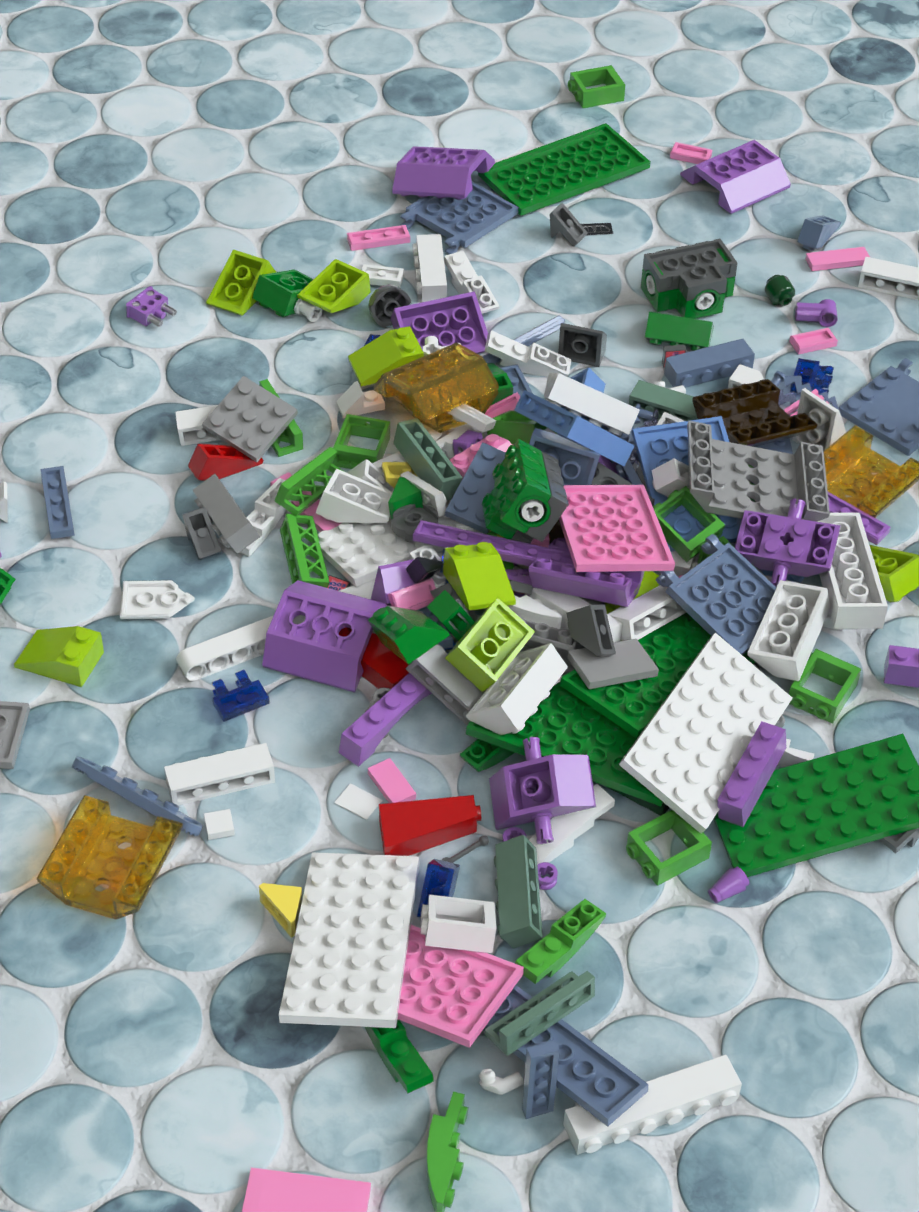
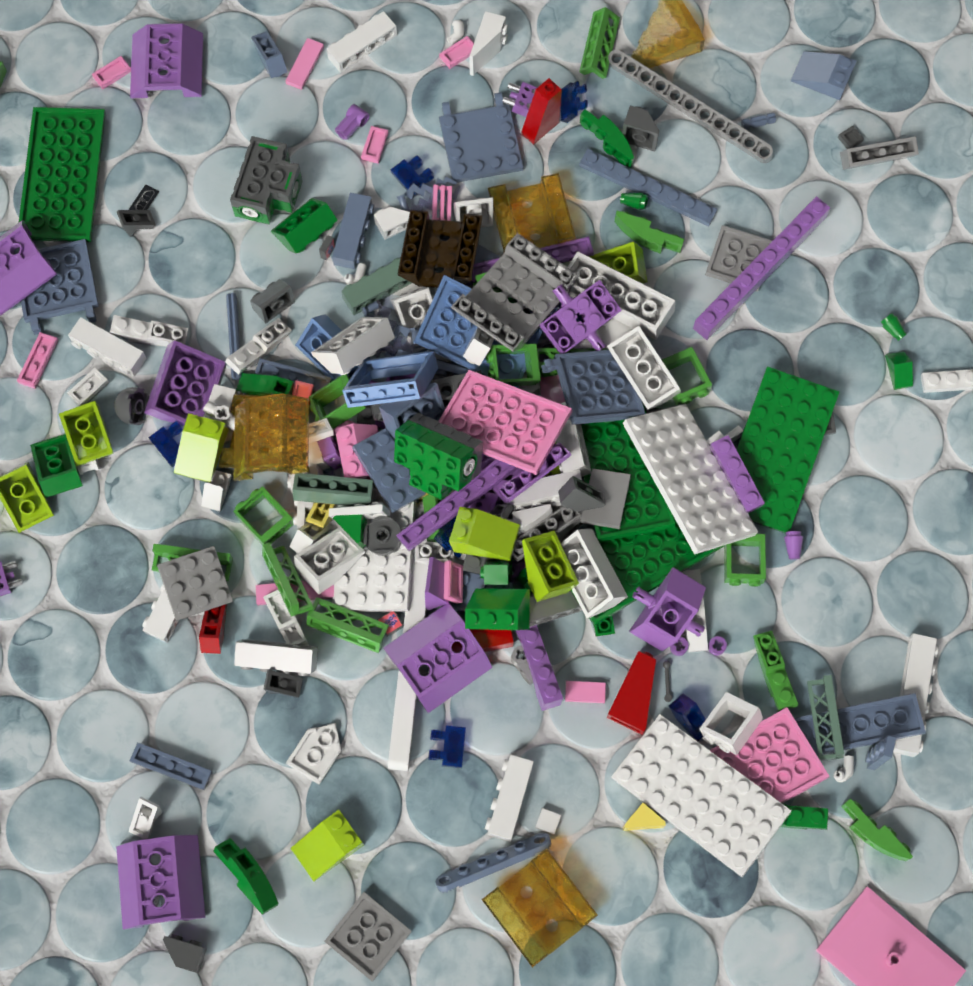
camera: 55 degrees left, 25 degrees up
(358, 801) = (583, 721): white sticker -> none
(423, 569) = (446, 563): black slope -> none
(518, 892) = (724, 671): sand green brick -> none
(779, 290) = (312, 128): dark green head -> none

